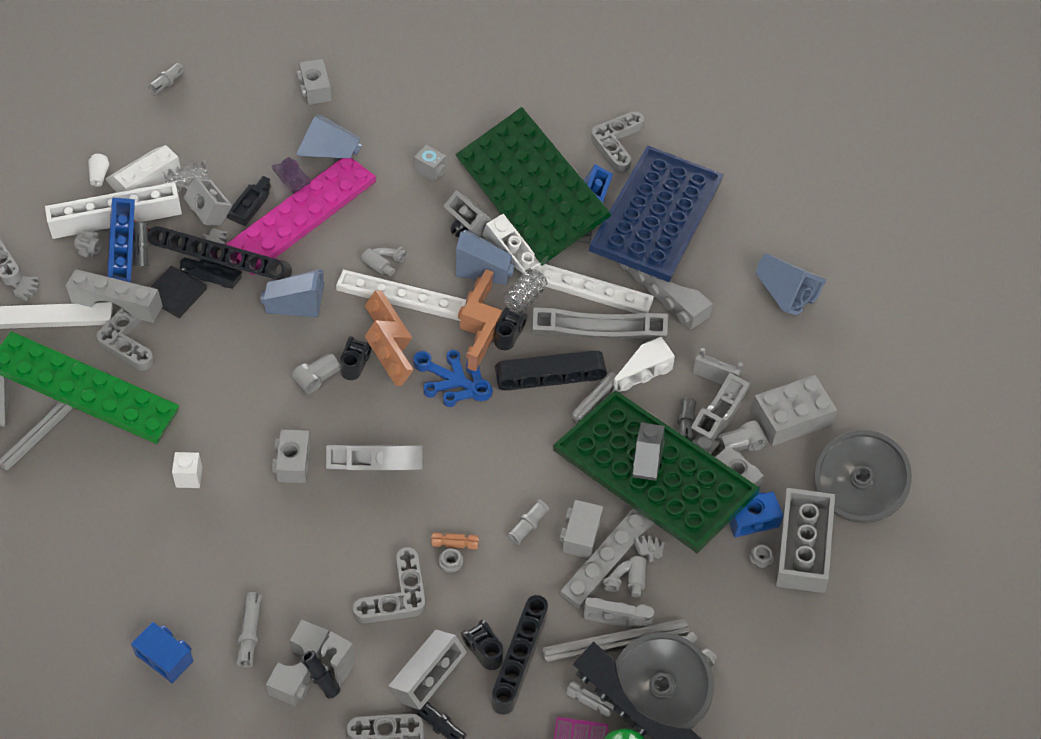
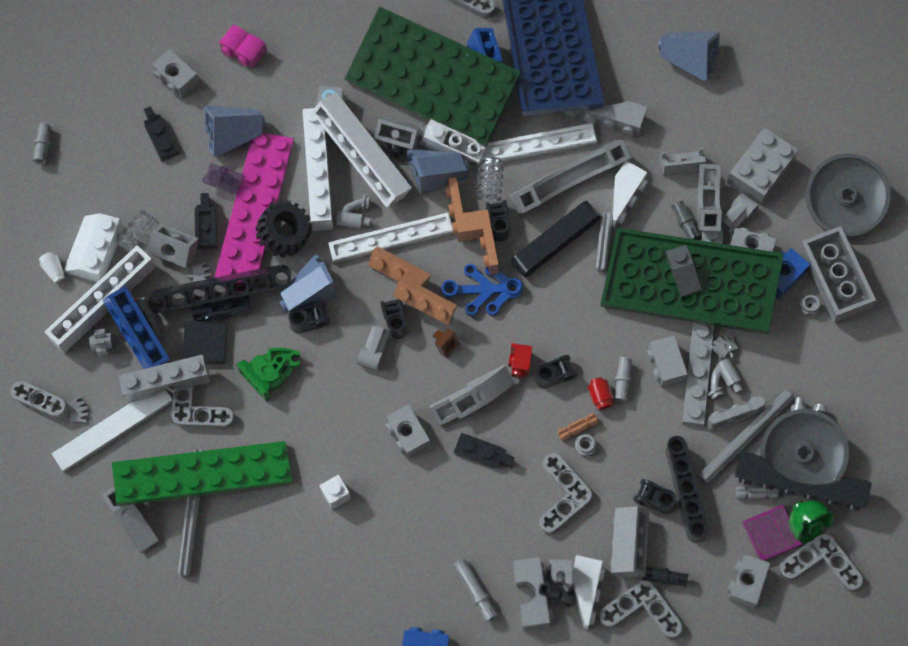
camera: 25 degrees left, 15 degrees up
(212, 340) = (267, 371): none -> green piece
(266, 120) = (160, 135): none -> black hinge
(278, 317) = (310, 317): none -> black piece
(314, 220) = (294, 218): none -> black tyre
(349, 513) = (482, 452): none -> black hinge
(359, 681) = (584, 584): none -> white slope
(377, 208) = (317, 172): none -> white brick
(385, 401) = (445, 341): none -> reddish brown tile
(386, 89) = (242, 46): none -> dark pink brick
(424, 209) = (361, 150): none -> white brick
(442, 453) = (520, 360): none -> red brick
(468, 480) = (558, 369): none -> black piece
(497, 522) = (601, 393): none -> red brick

